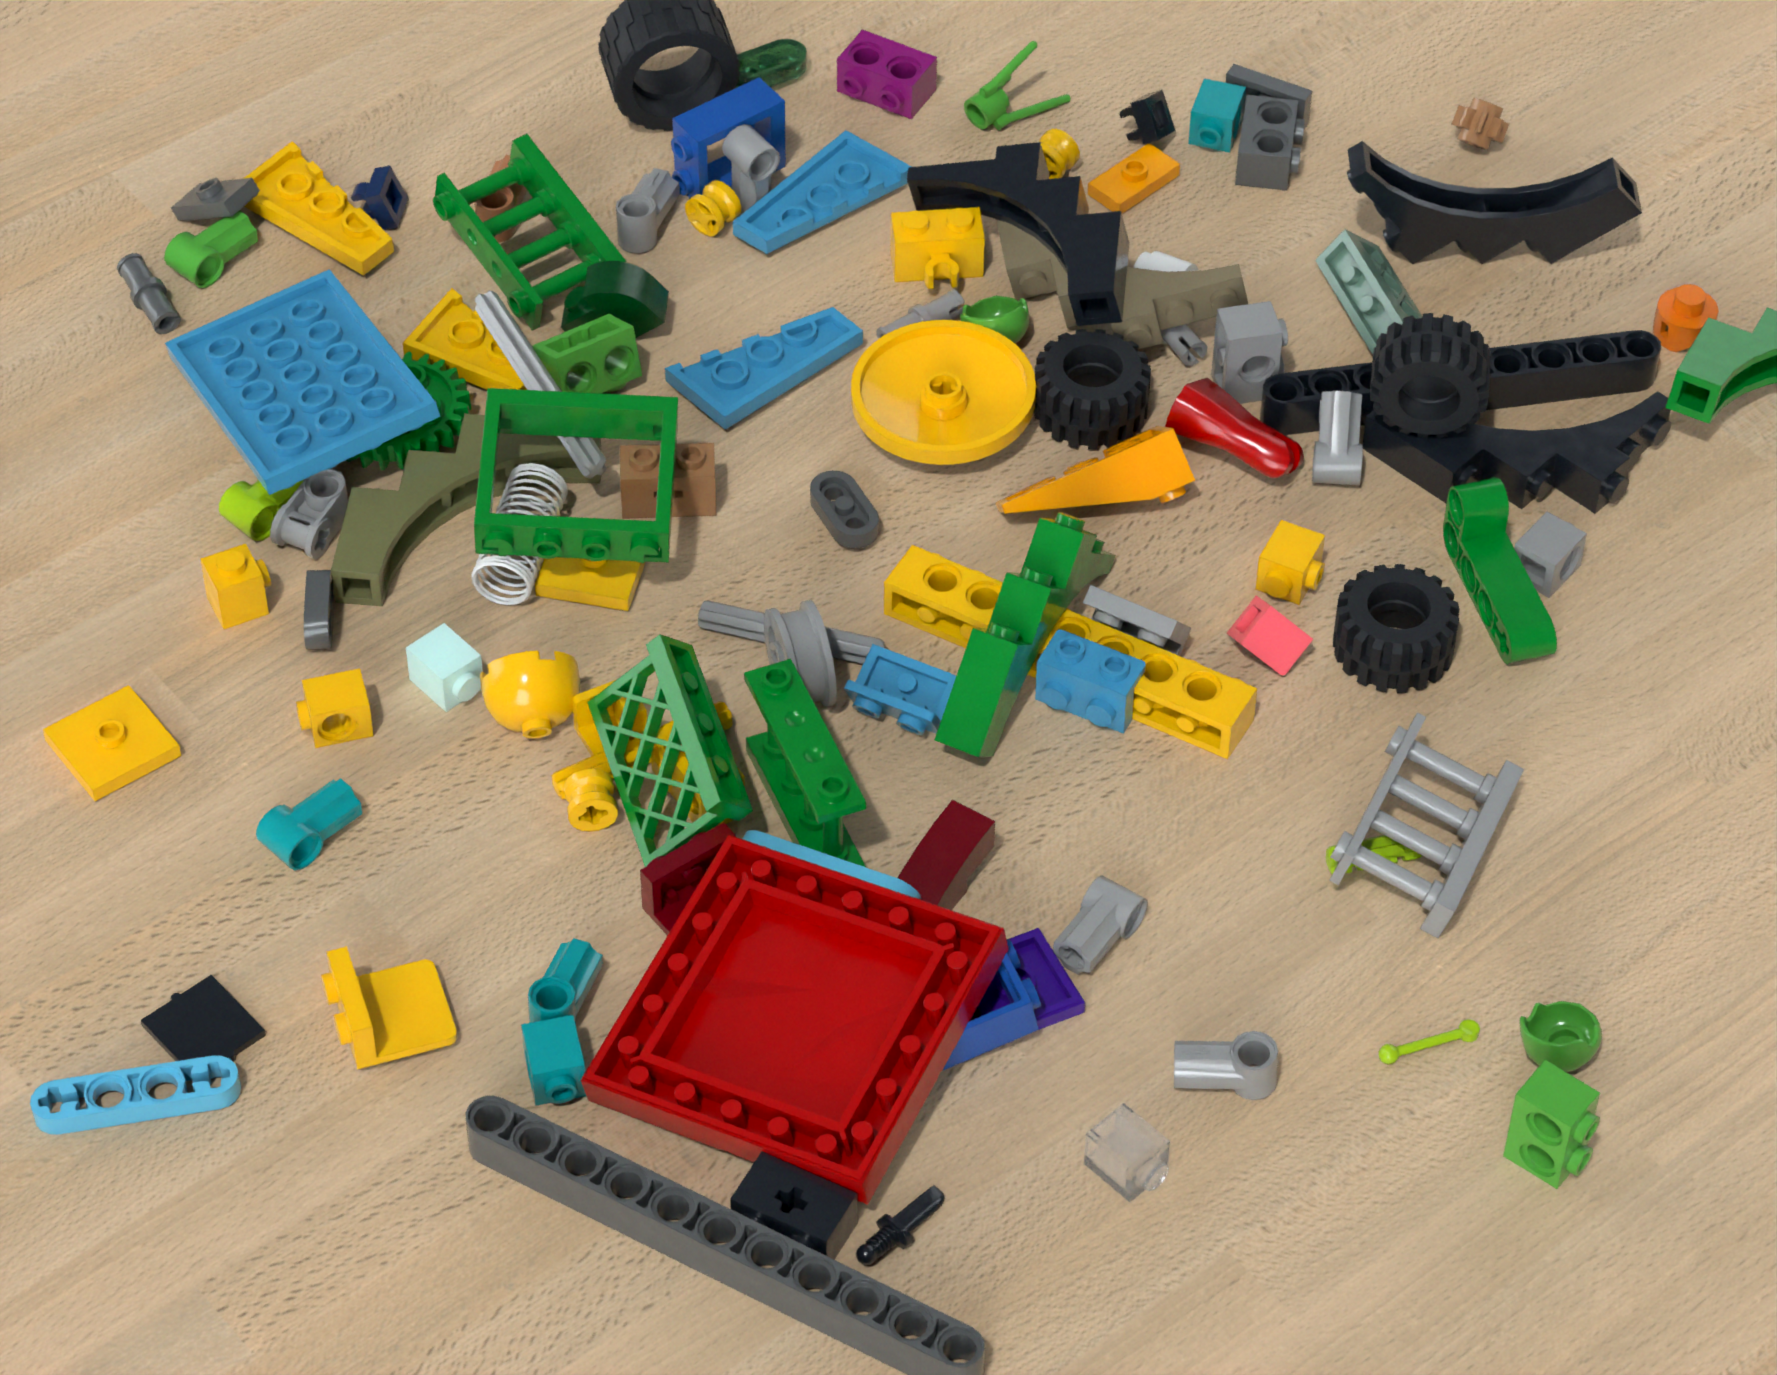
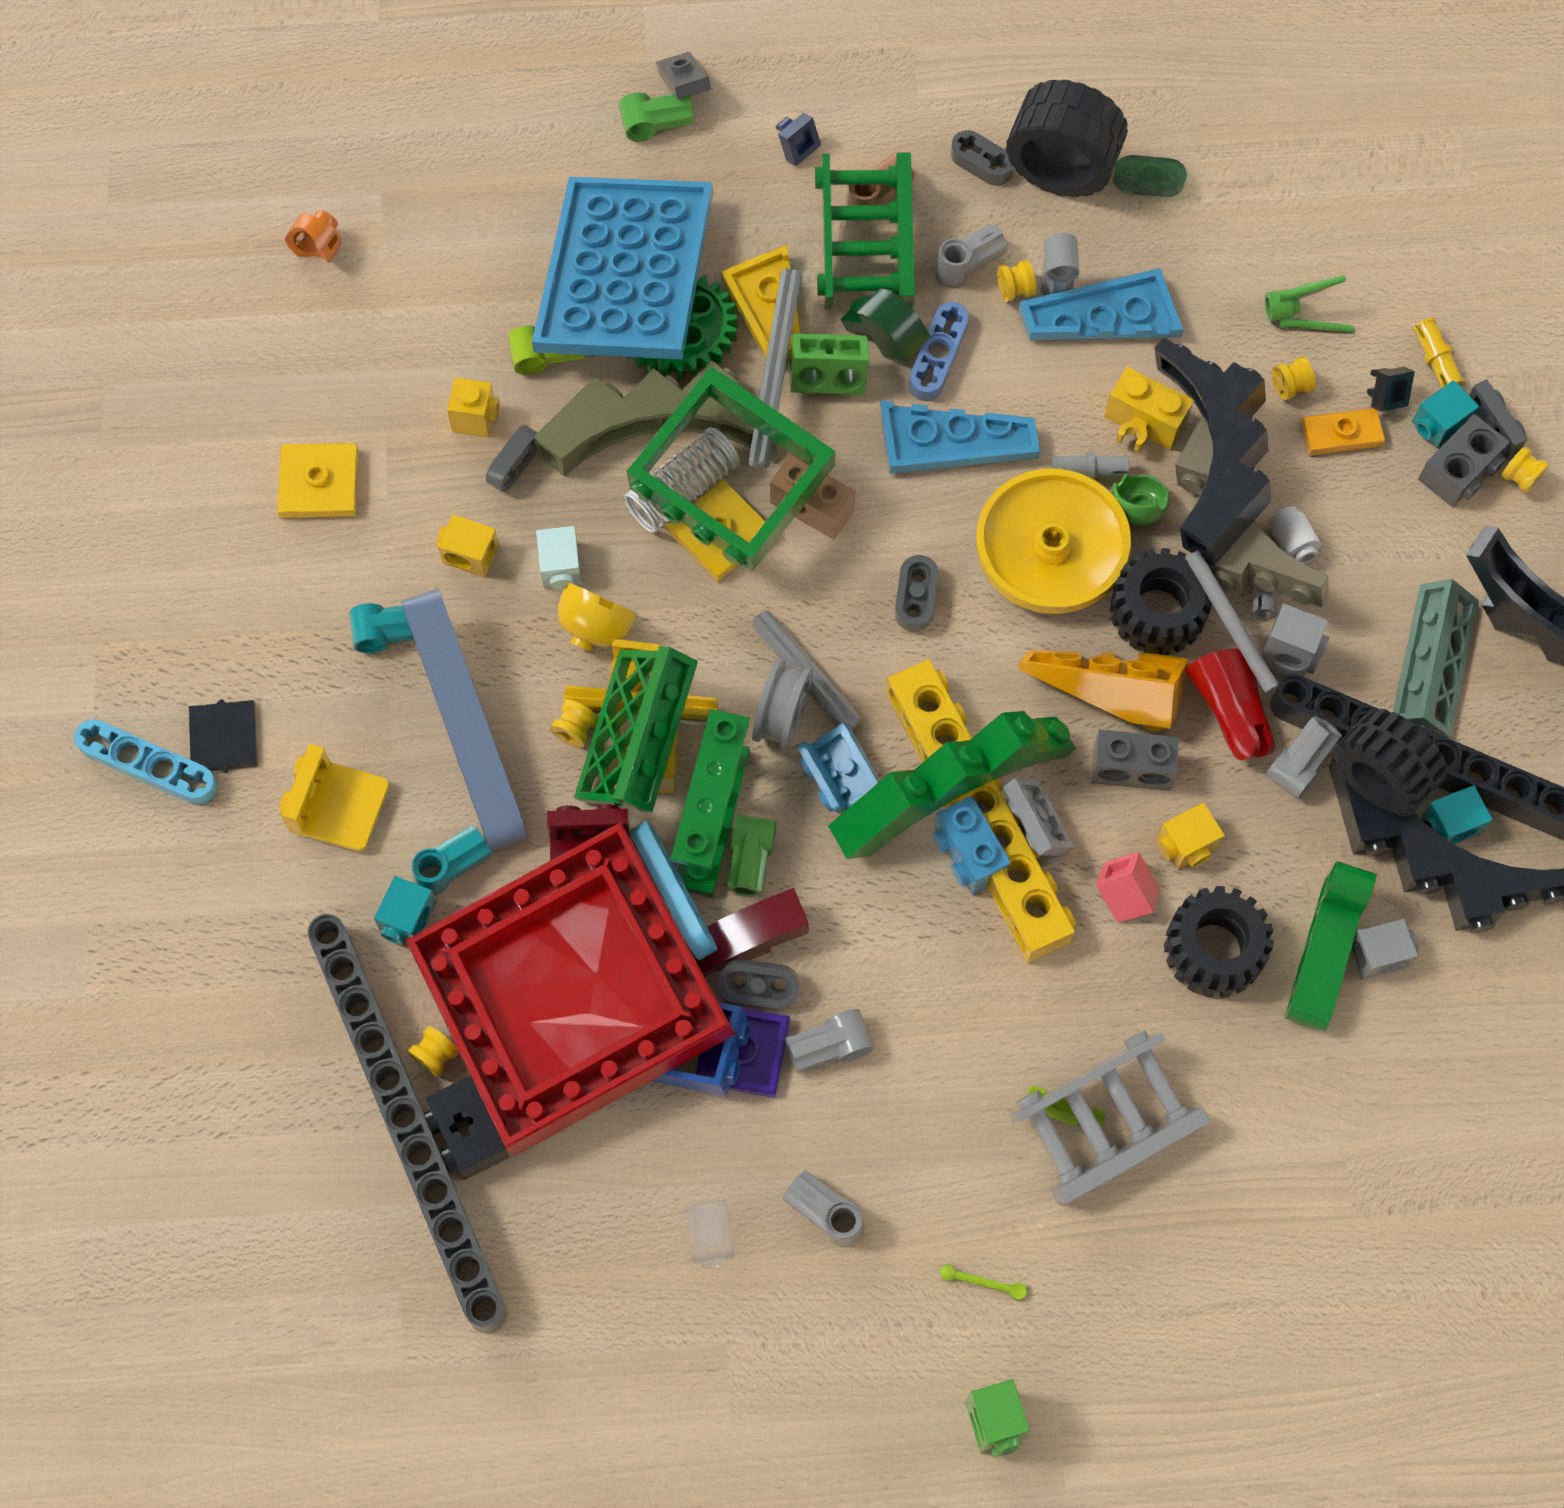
camera: 35 degrees right, 20 degrees up
(148, 293) = (589, 127): dark grey pin -> none
(310, 208) = (745, 113): yellow wing -> none
(312, 514) = (561, 379): light grey piece -> none
(470, 848) = (464, 720): none -> sand blue beam
(585, 130) = (981, 158): none -> dark grey beam
(680, 320) = (940, 365): none -> medium blue beam
(696, 129) = (1075, 216): blue window -> none
(698, 1163) = (433, 1051): none -> yellow wheel
(882, 821) = (751, 846): none -> bright green piece
(886, 74) = (1235, 231): magenta brick -> none
(897, 1229) = (531, 1181): black piece -> none
(982, 904) = (758, 988): none -> dark grey plate
(1165, 73) = (1437, 352): none -> yellow pin
(1178, 358) = (1231, 621): none -> light grey bar
(1182, 528) = (1135, 760): none -> dark grey brick
(1328, 122) = (1525, 470): none -> yellow wheel
(1520, 407) = (1458, 815): none -> teal brick
(1561, 1034) = (1069, 1345): bright green hair -> none

